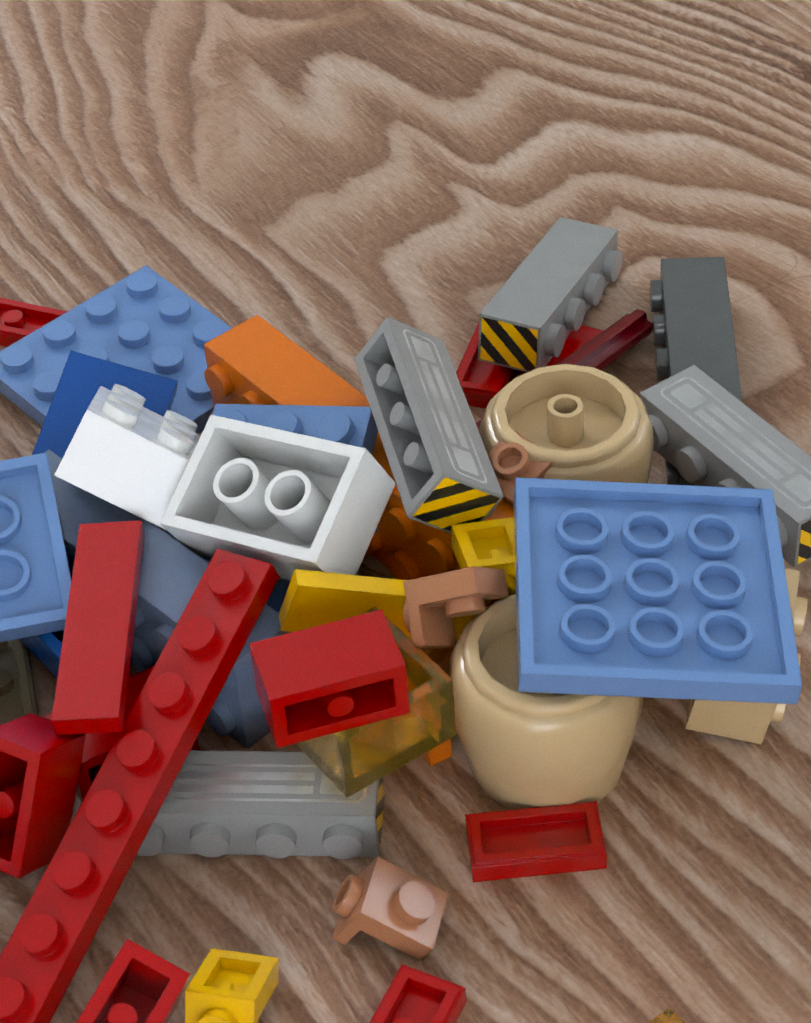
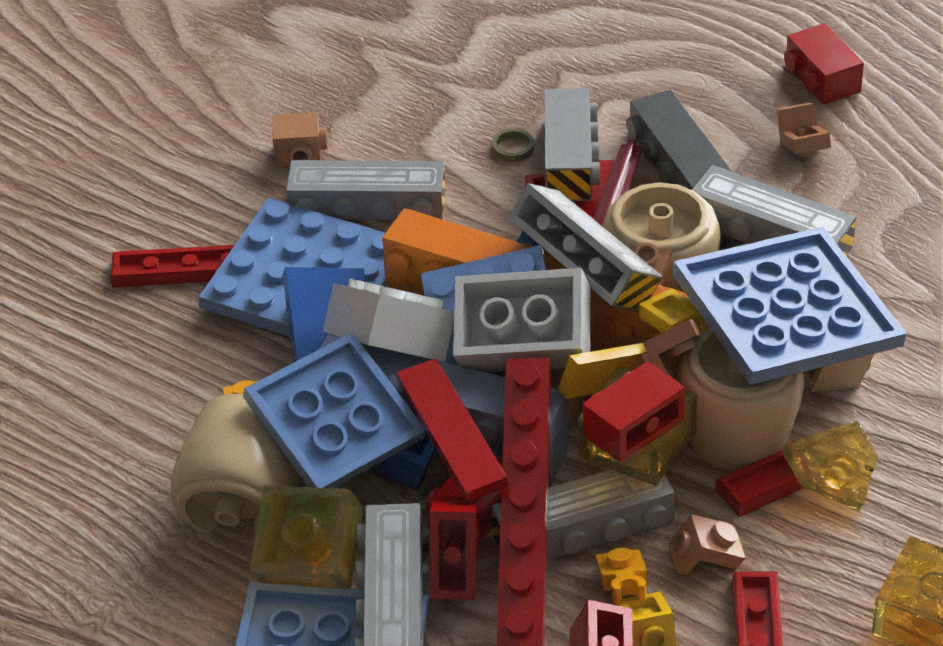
camera: 25 degrees left, 0 degrees up
(231, 206) = (297, 138): none -> nougat brick
(244, 909) = (623, 573): none -> light orange plate
(284, 288) = (367, 188): none -> light grey brick
(486, 266) = (513, 156): none -> olive piece
(645, 849) = (834, 463): none -> clear yellow plate

